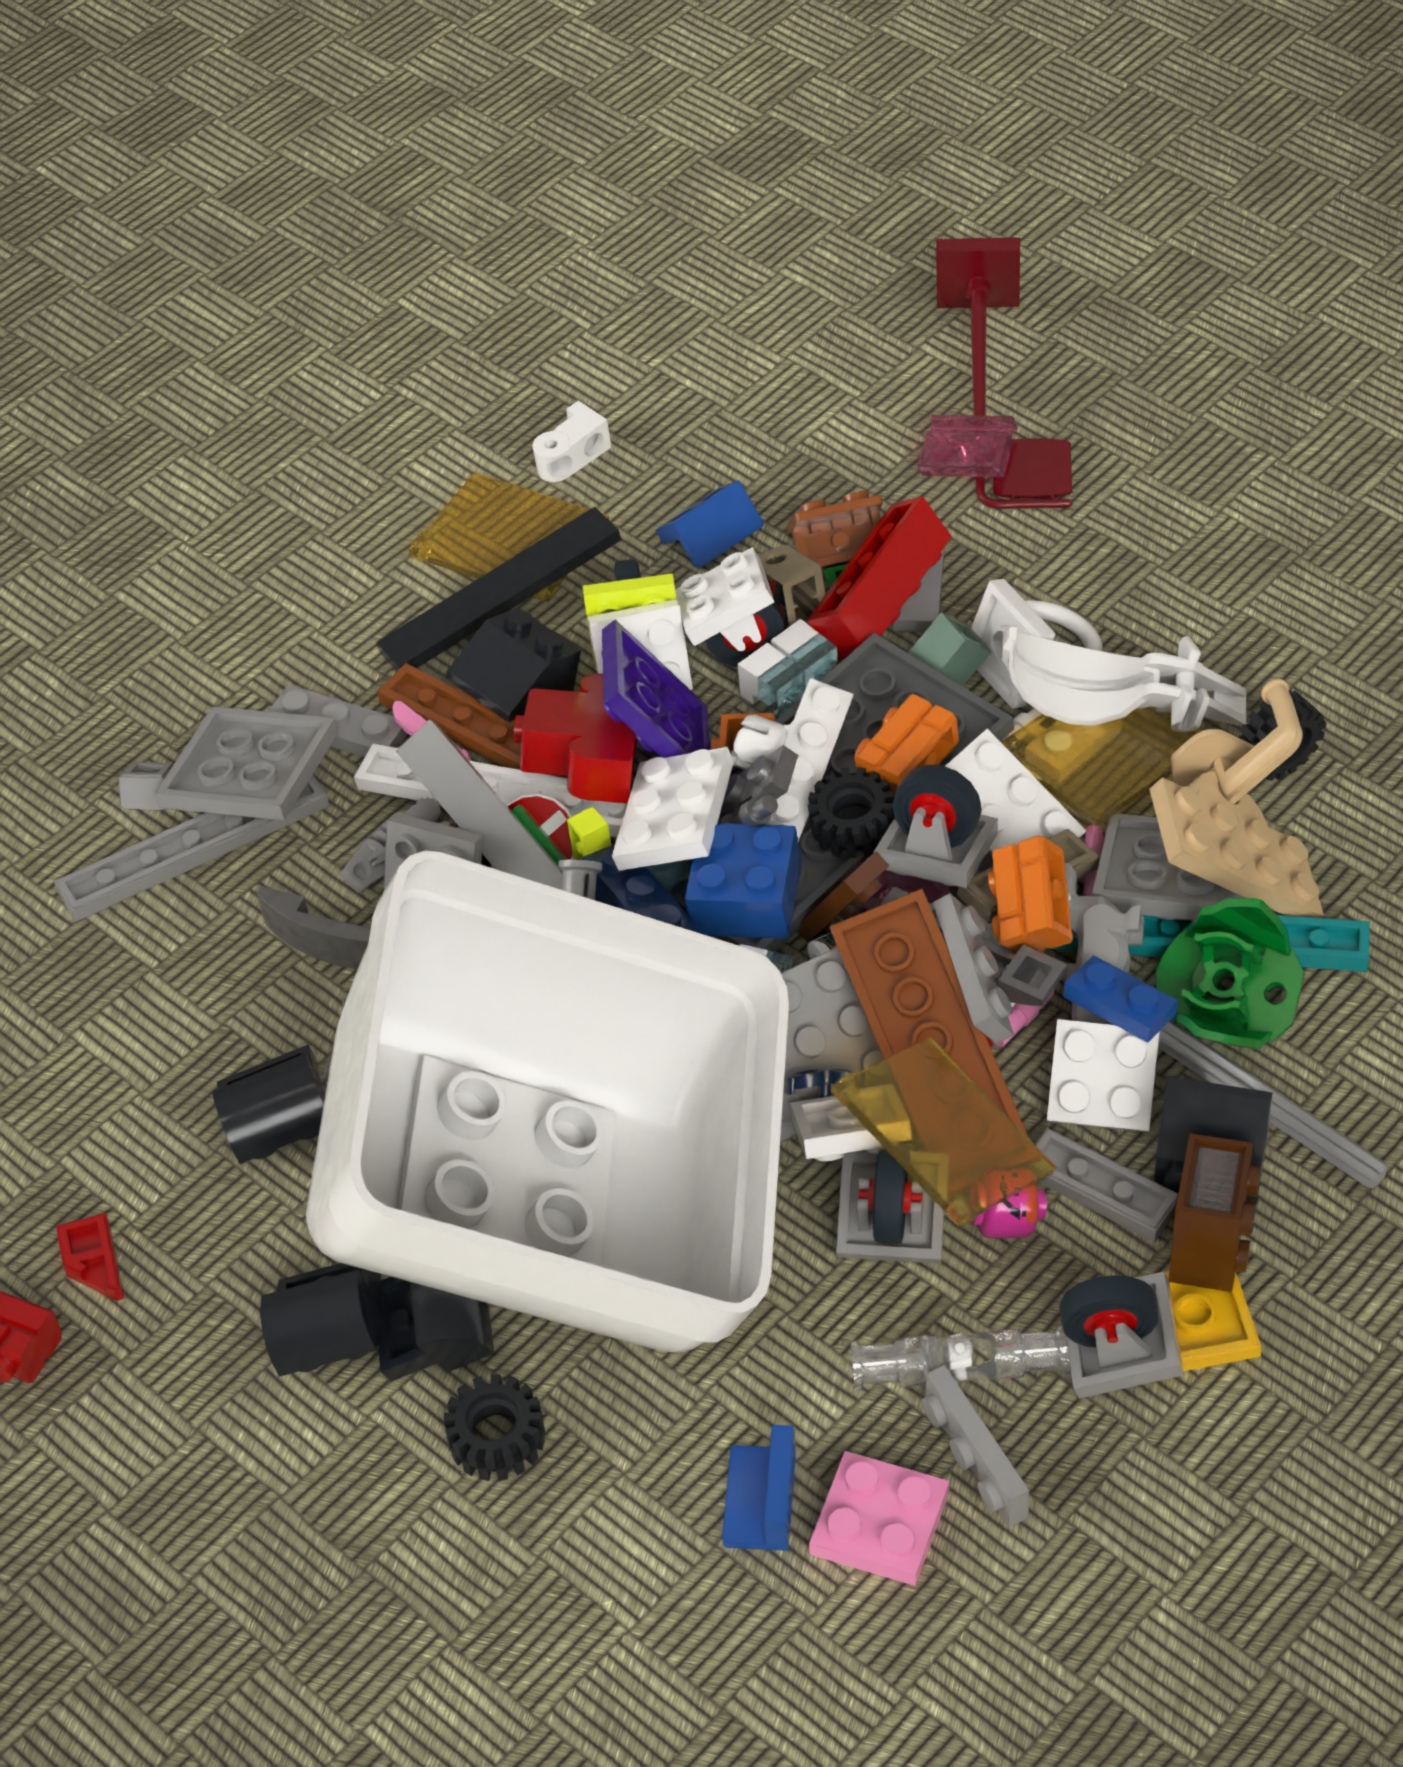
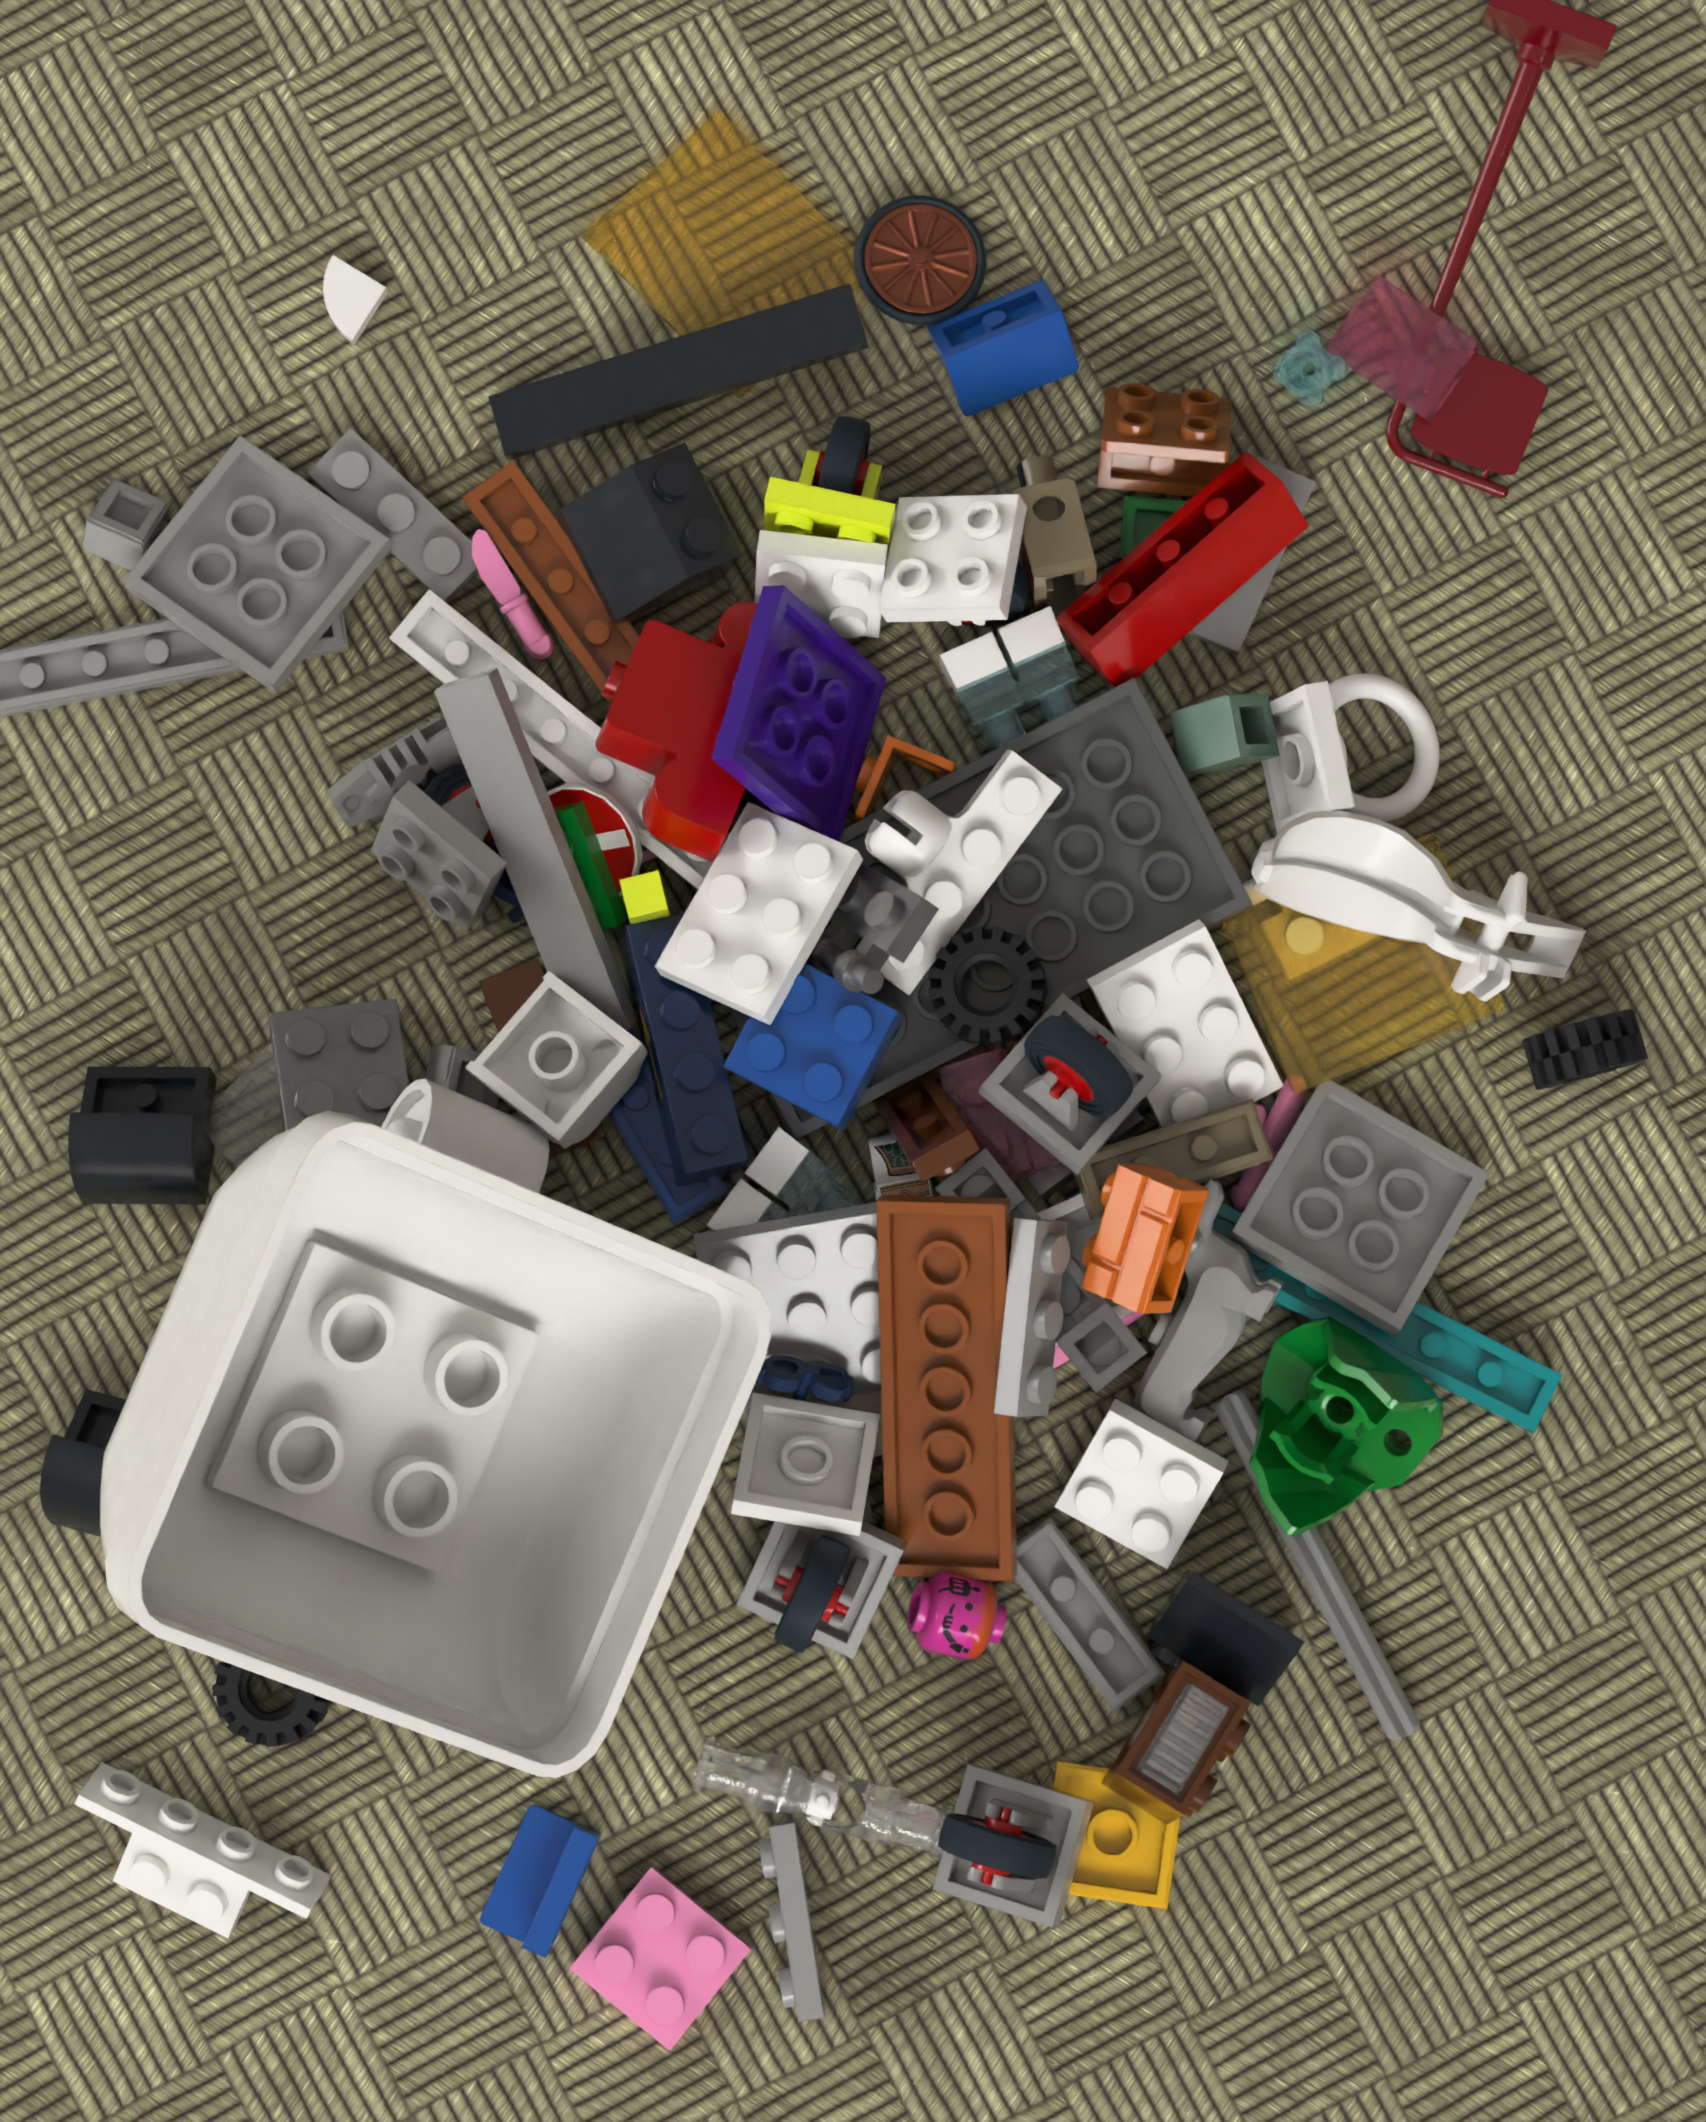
camera: 20 degrees right, 35 degrees up
(265, 625) = (350, 298): none -> white tile
(311, 934) = (367, 942): flat silver slope -> none
(471, 1575) = (193, 1858): none -> white bracket
(571, 444) = (852, 128): white leg -> none
(580, 876) = (604, 979): light grey bush -> none
(637, 500) = (920, 260): none -> copper wheel
(907, 466) = (1291, 369): none -> clear light blue plate
(908, 739) = (1090, 916): orange brick -> none
(943, 1130) = (903, 1540): clear yellow piece -> none
(1120, 998) = (1194, 1416): blue plate -> none
(1218, 828) = (1435, 1217): tan plate -> none

